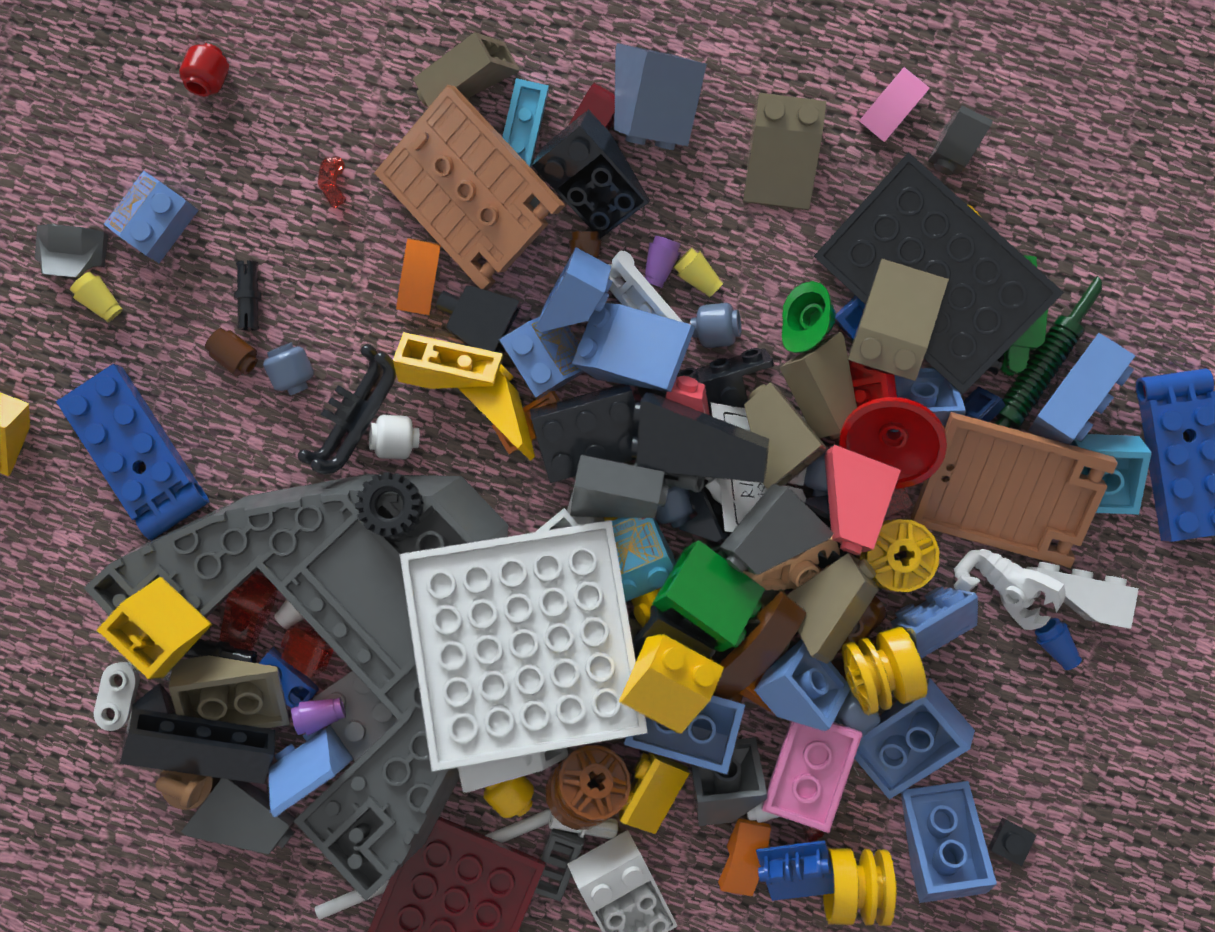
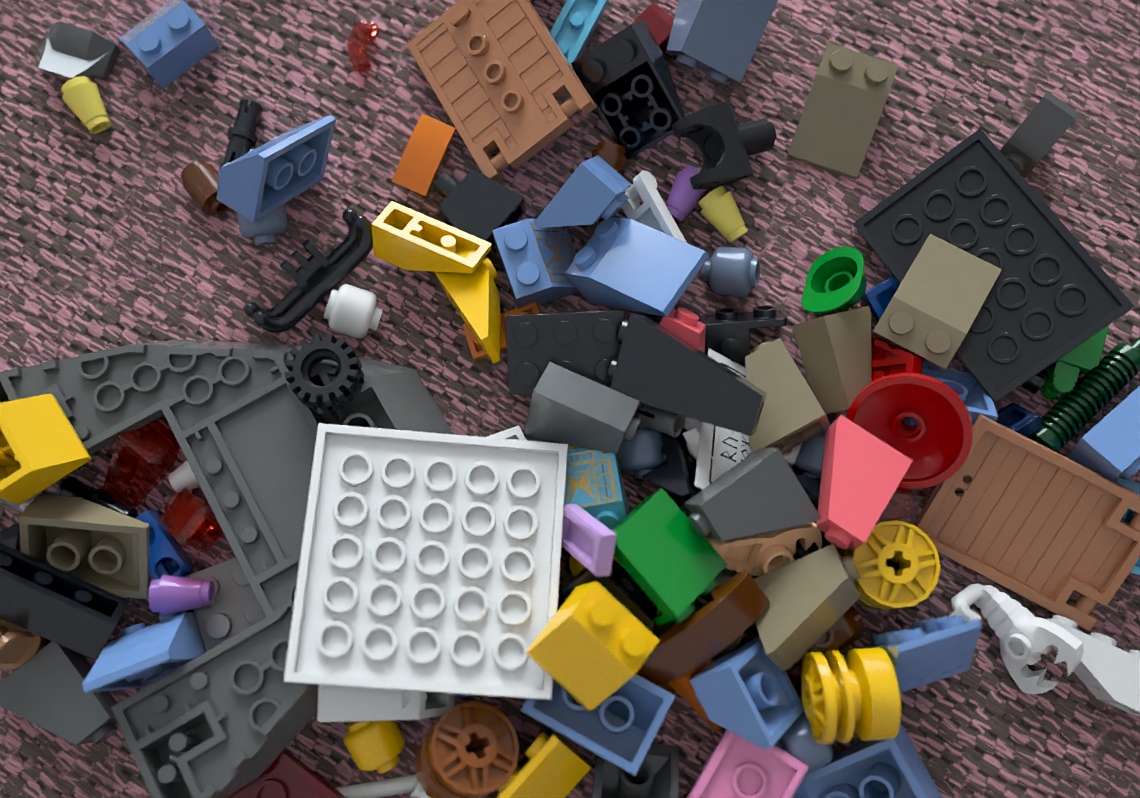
camera: 20 degrees right, 10 degrees down
(123, 435) = (68, 246): blue hinge -> none
(293, 327) = (276, 170): none -> medium blue slope
(647, 599) = (587, 540): none -> lavender tile
(686, 211) = (724, 144): none -> black connector
(894, 104) = (968, 91): bright pink slope -> none
(1058, 643) = (1062, 718): blue cone -> none

